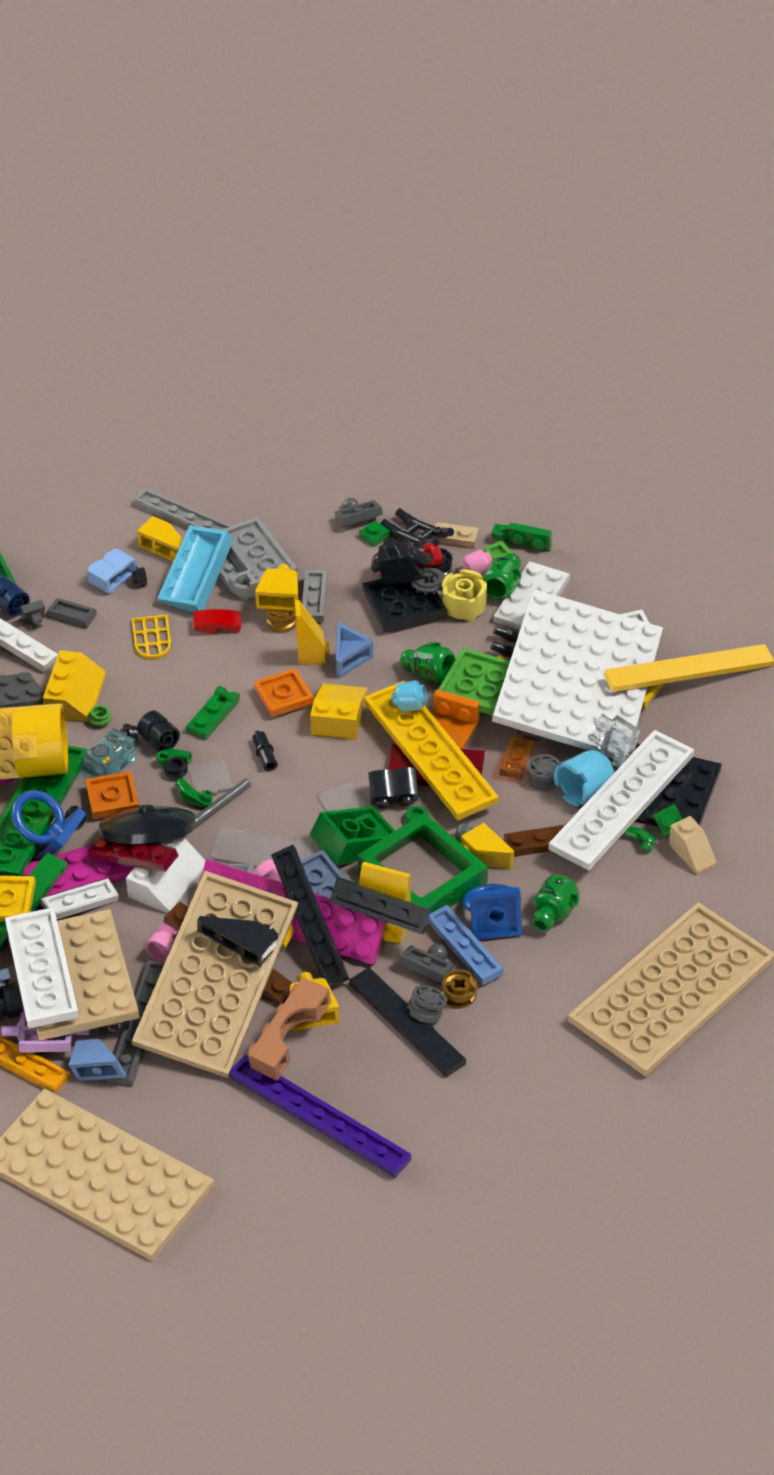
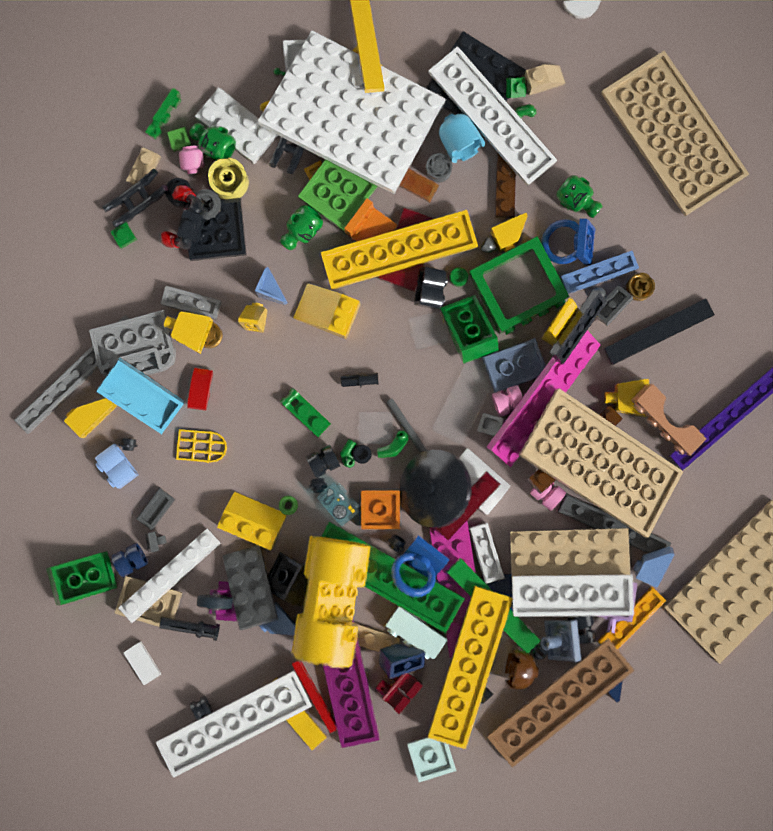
camera: 75 degrees left, 40 degrees up
(244, 937) = (588, 437): black slope -> none
(283, 692) = (299, 351): orange plate -> none
(310, 916) = (566, 381): black tile -> none
(355, 512) = (96, 244): dark grey plate -> none
(409, 696) = (349, 252): medium azure head -> none
(426, 1004) = (655, 314): dark grey wheel -> none
(615, 737) = (448, 100): clear hips -> none

